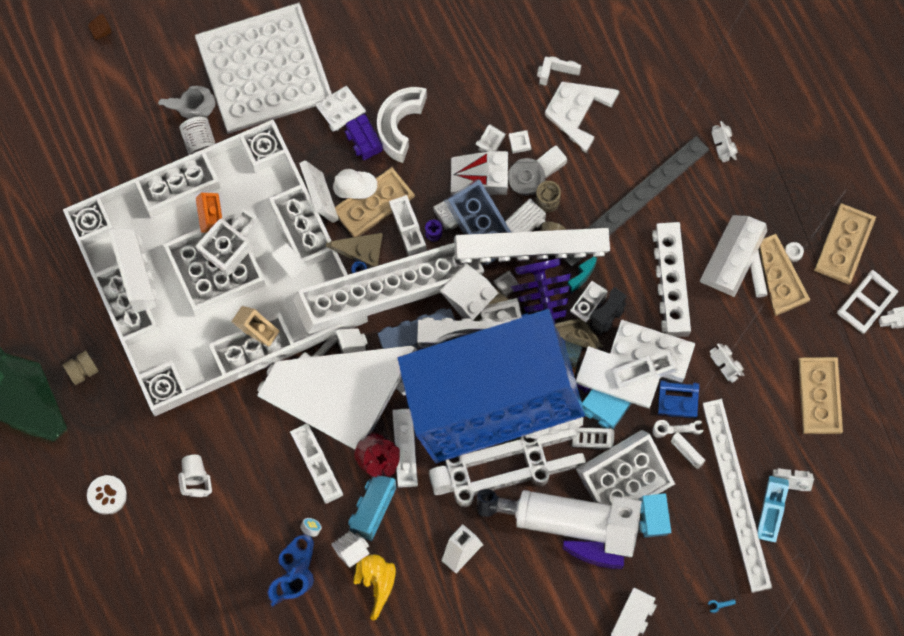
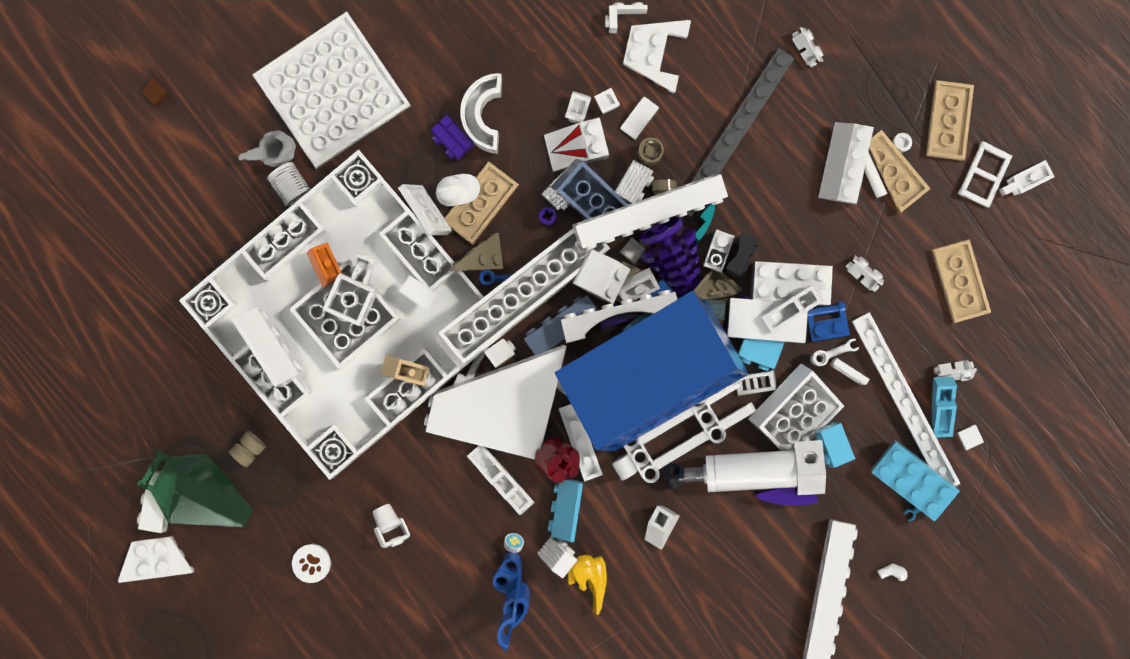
camera: 10 degrees left, 15 degrees up
(340, 108) = (420, 114): white hinge -> none
(407, 226) = (521, 219): white slope -> none
(526, 176) = (623, 135): light grey tile -> none
(671, 233) = (781, 157): white brick -> none
(725, 569) = (915, 480): none -> medium azure brick
(793, 547) = (970, 437): none -> white tile

